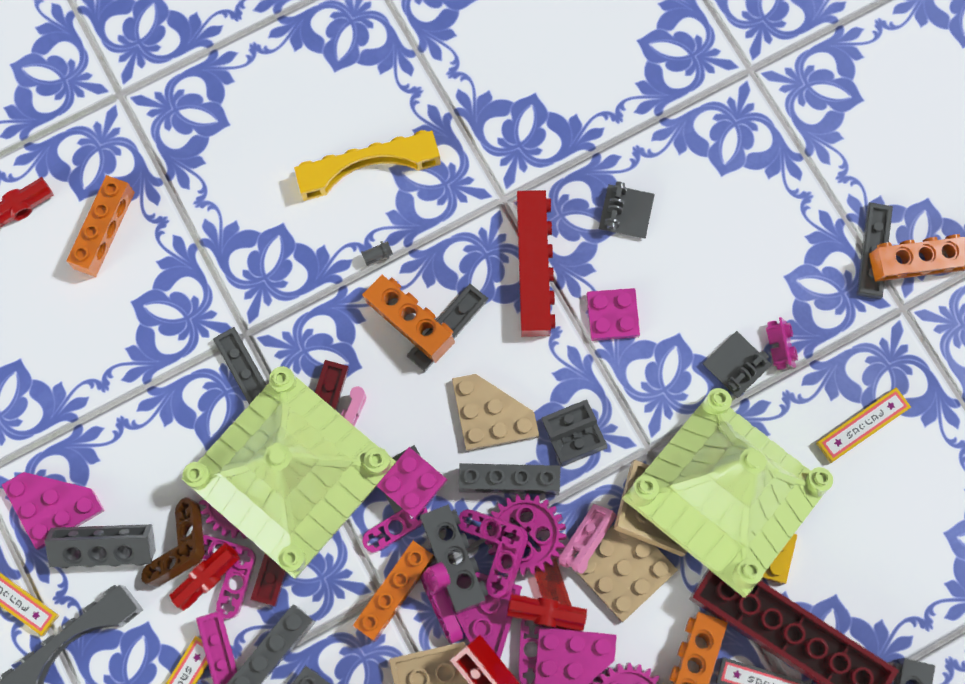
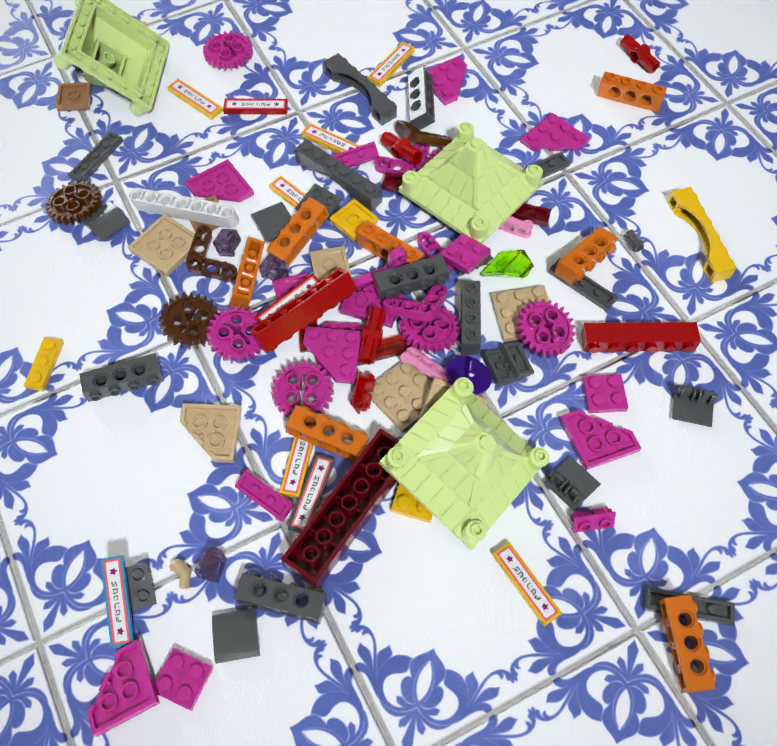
camera: 90 degrees right, 15 degrees down
(178, 345) = (554, 135): none -> dark pink plate
(337, 647) = (351, 218): none -> yellow plate
(425, 426) = (509, 265): none -> clear neon green slope
(534, 399) = (545, 328): none -> dark pink gear
(596, 484) = (469, 368): none -> dark purple shield
(618, 623) = (360, 399): none -> red hinge
(679, 329) = (597, 439): none -> dark pink plate

